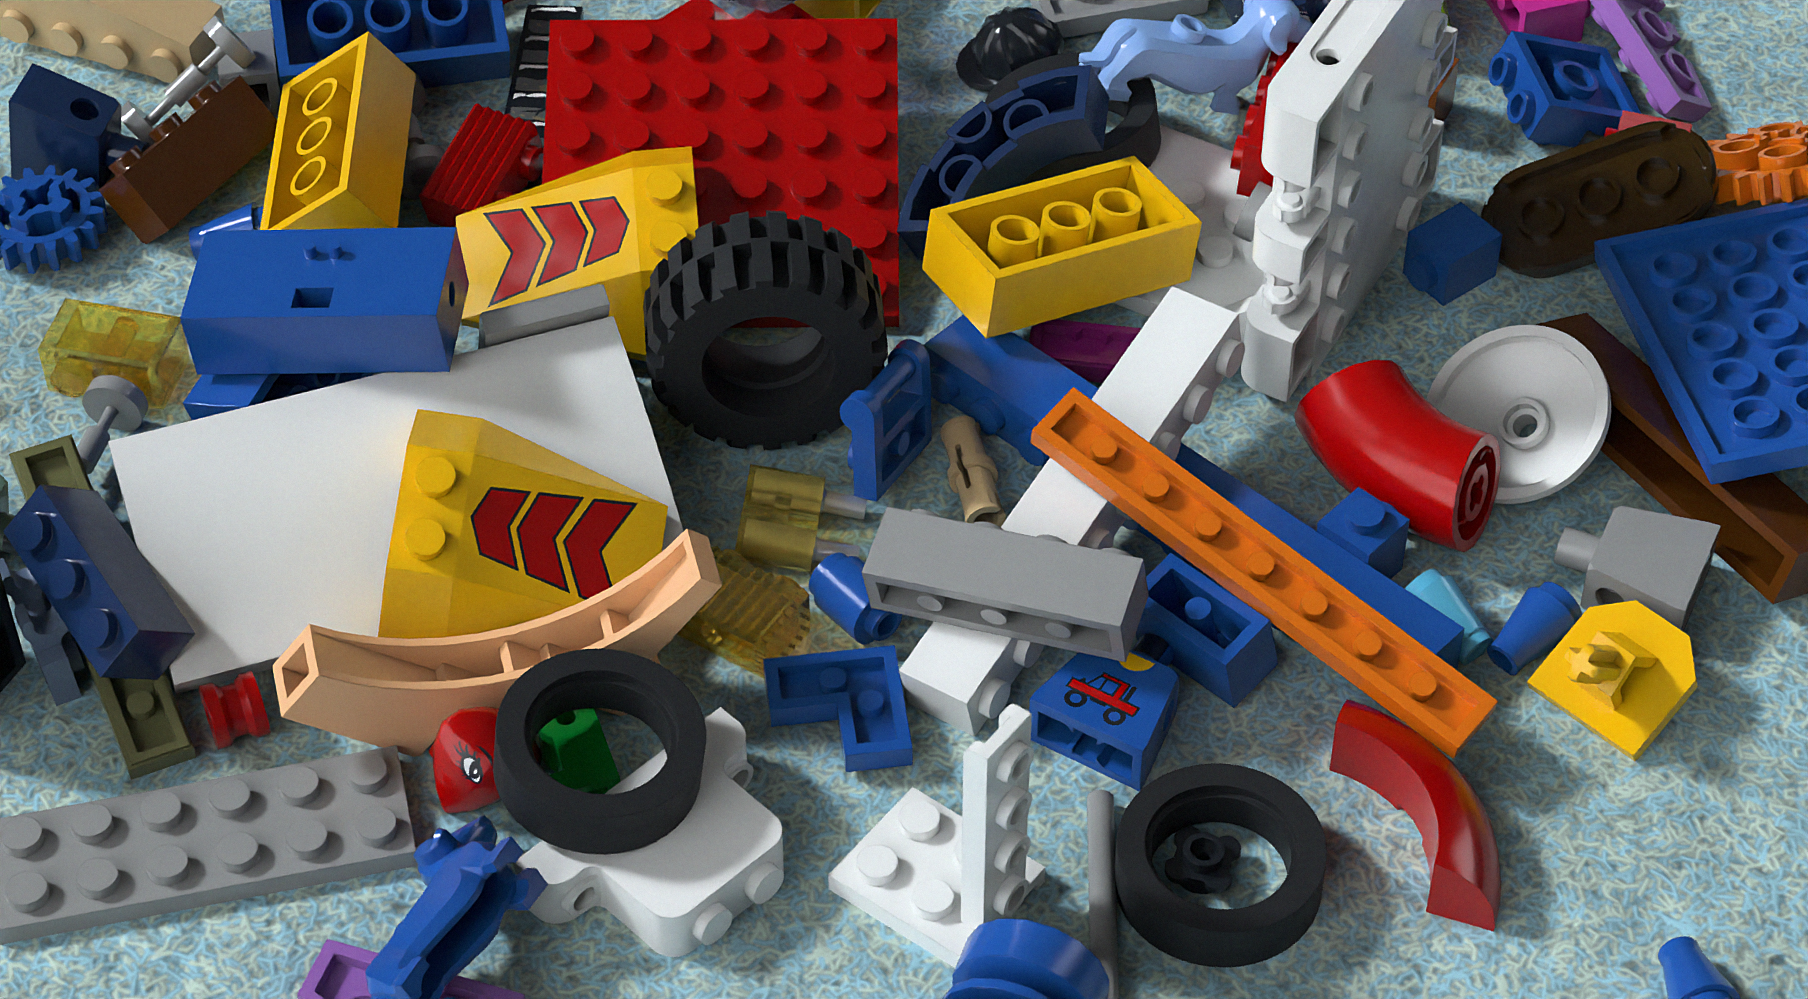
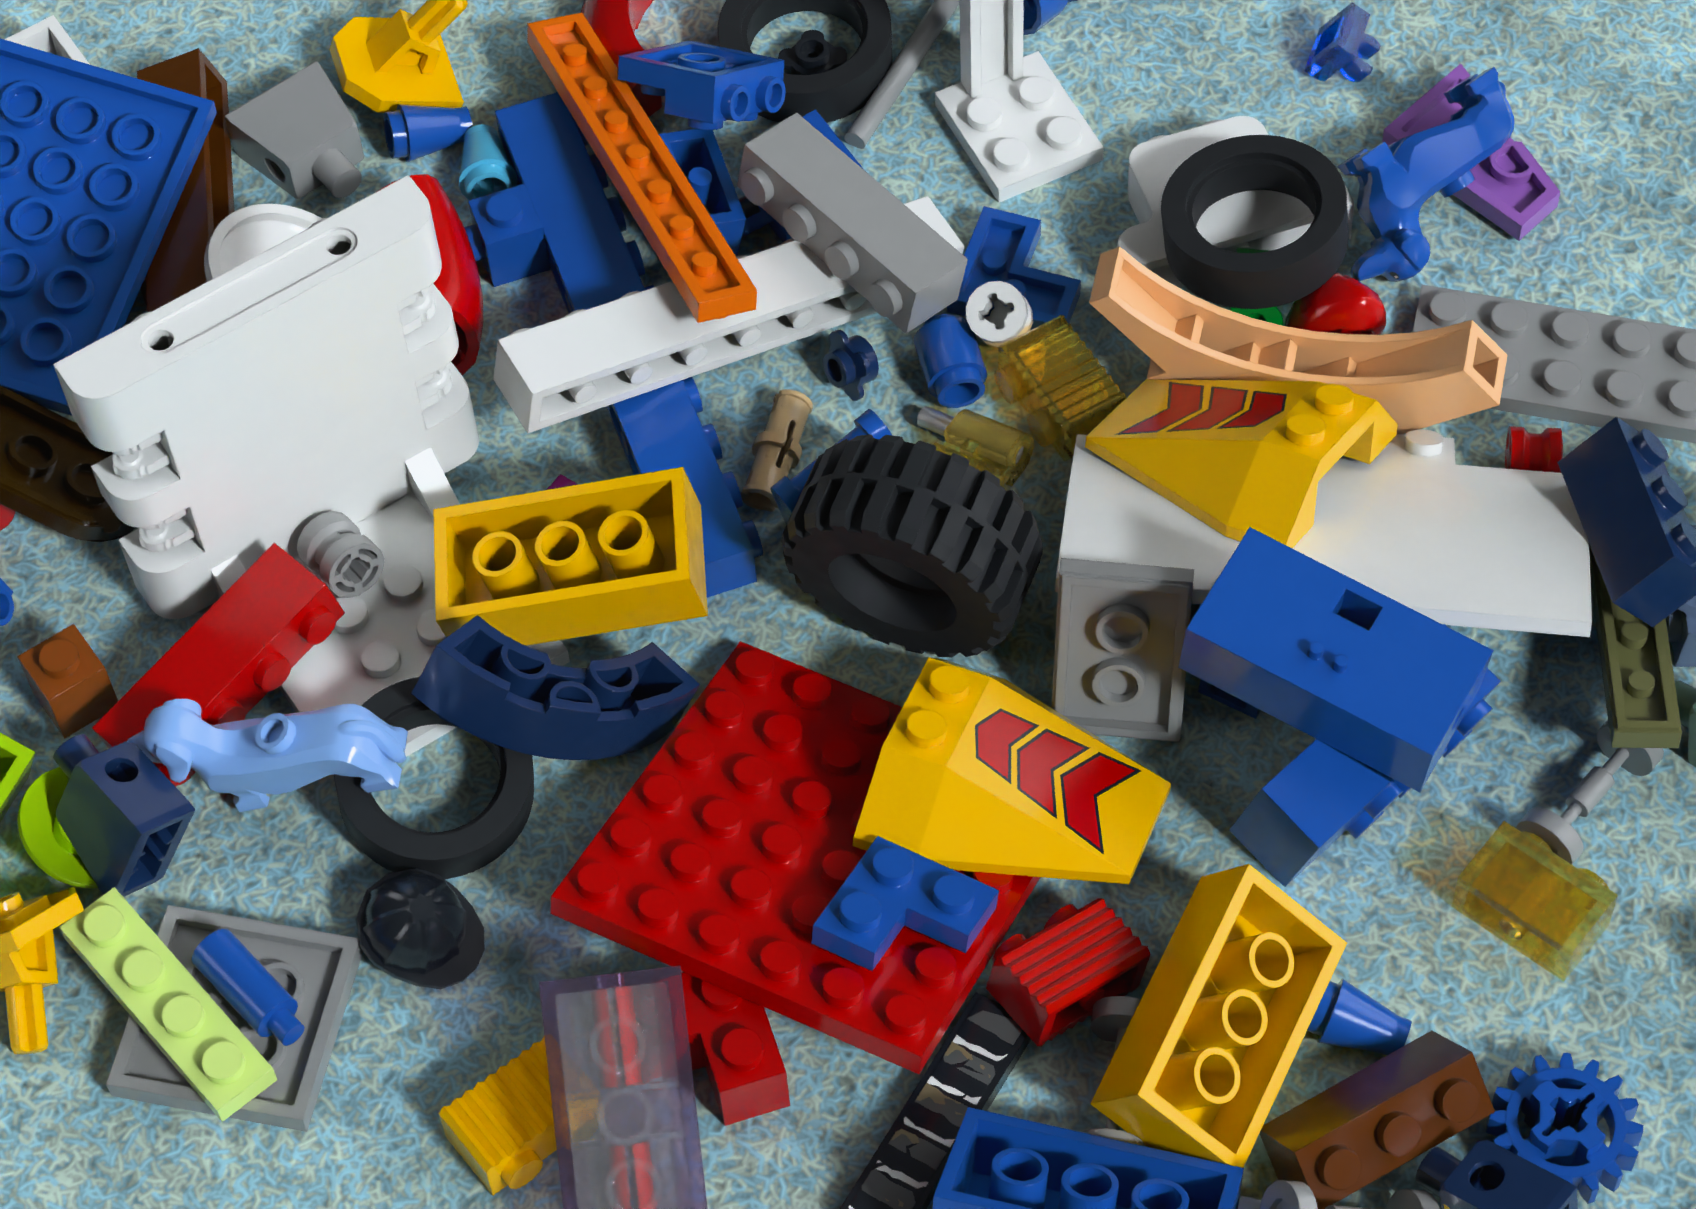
camera: 150 degrees left, 10 degrees up
(630, 116) = (899, 890): none -> blue plate
(825, 624) = (1003, 322): none -> white wheel
(1266, 699) = (707, 82): none -> blue plate

